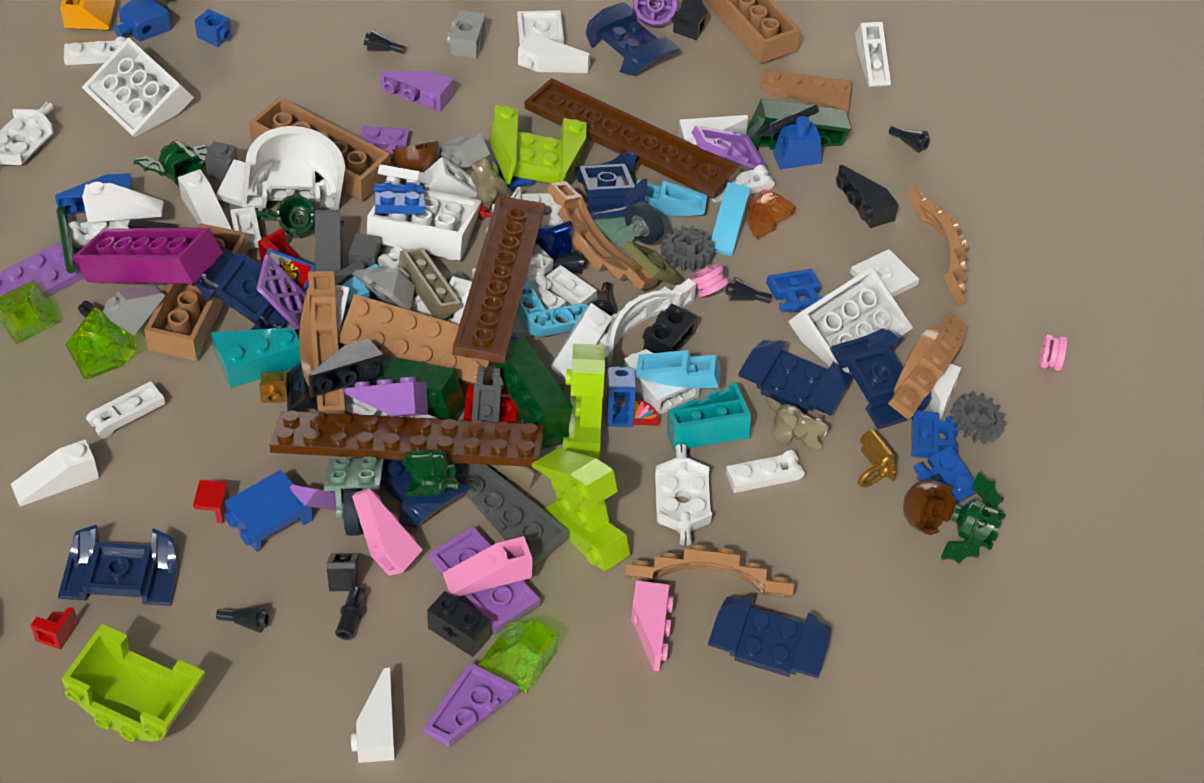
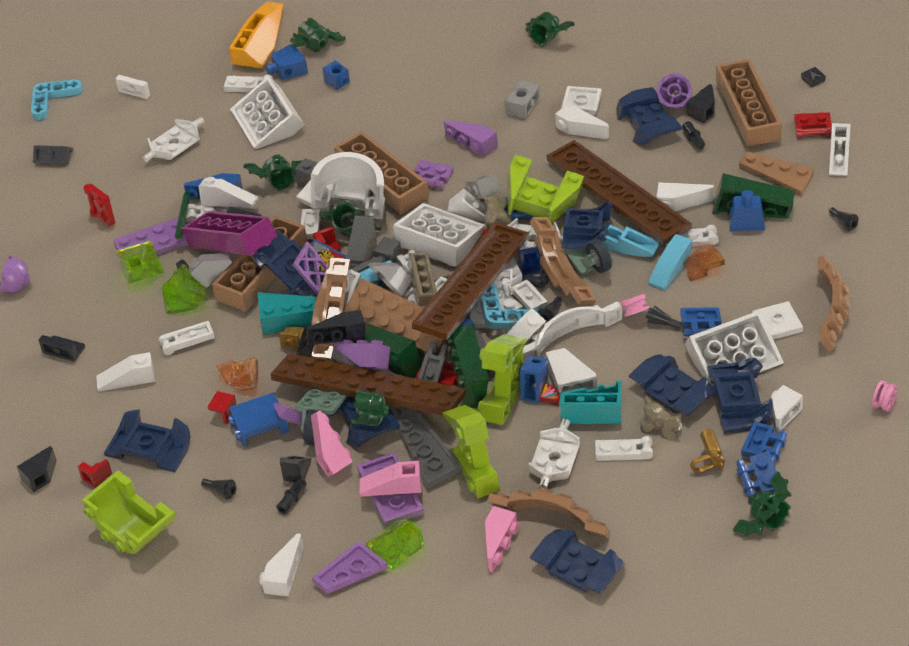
camera: 25 degrees right, 5 degrees down
(201, 200) = (285, 199): white slope -> none
(219, 450) = (241, 374): none -> clear orange brick
(378, 42) = (453, 98): black cone -> none
(396, 174) = (437, 201): white plate -> none
(399, 198) = (421, 215): blue plate -> none
(418, 156) = (446, 188): reddish brown cylinder -> none
(458, 623) = (360, 514): black brick -> none
(653, 263) = (595, 286): olive tile -> none
(670, 331) = (590, 339): black brick -> none
(679, 369) = (581, 365): medium azure slope -> none
(687, 248) = (628, 279): dark grey gear -> none
(693, 56) = (693, 135): none -> black axle
(728, 145) = (689, 206): medium lavender wing -> none
(768, 129) = (720, 197): black piece -> none
(827, 28) = (812, 124): none -> red plate
(869, 198) = (788, 260): black slope -> none
(927, 363) = (776, 385): medium nougat piece -> none
(928, 505) = (734, 490): reddish brown cylinder -> none
(978, 417) = (803, 434): dark grey gear -> none

